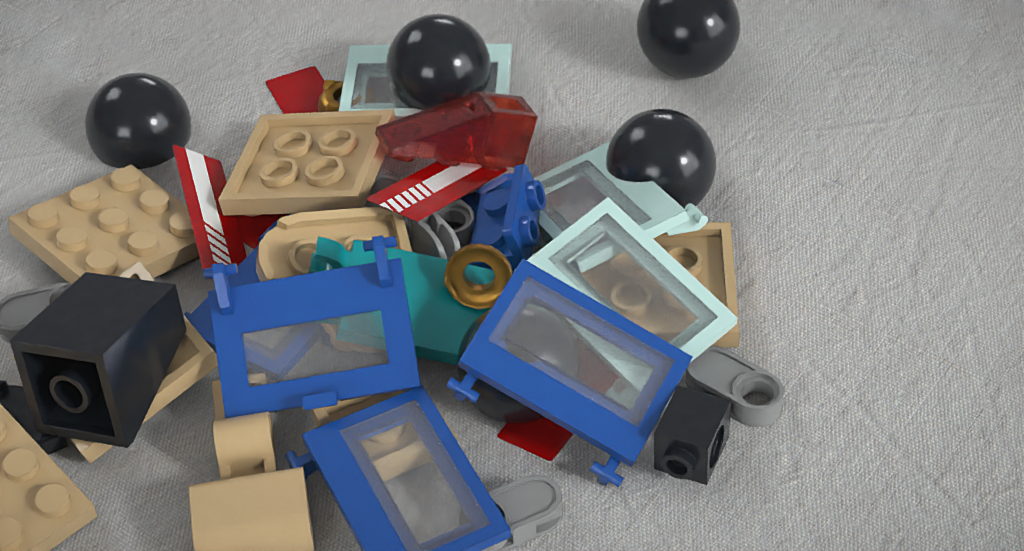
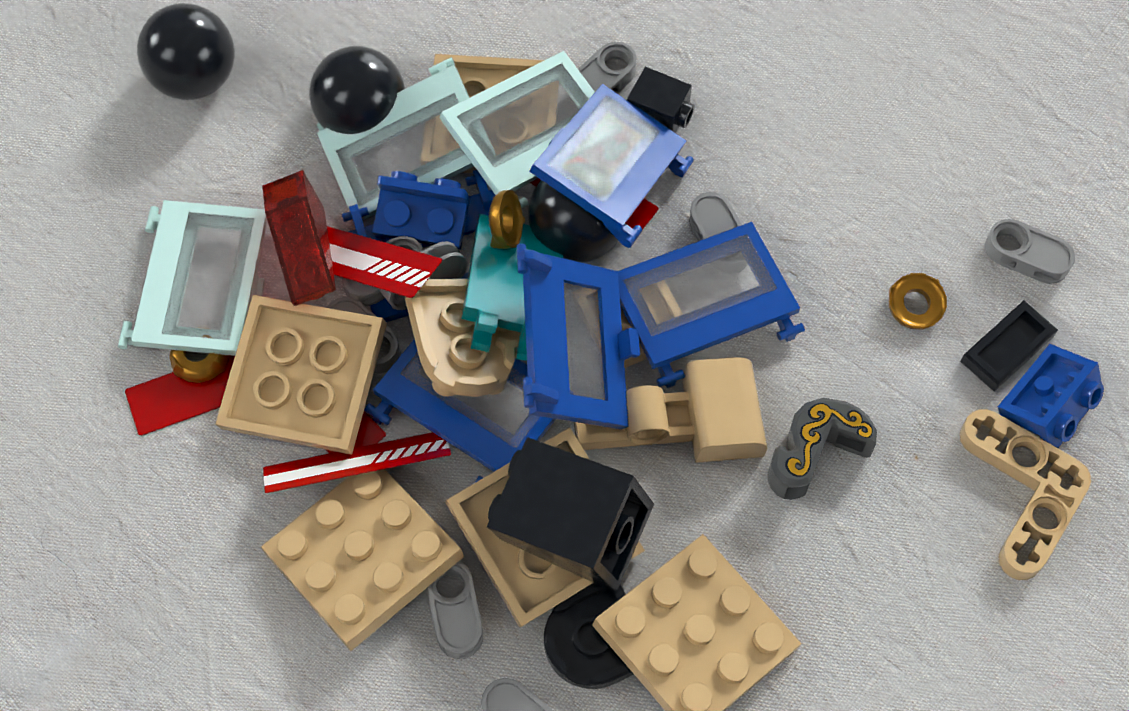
camera: 90 degrees left, 20 degrees up
(137, 121) = (196, 547): black piece -> none
(437, 61) = (198, 254): black piece -> none

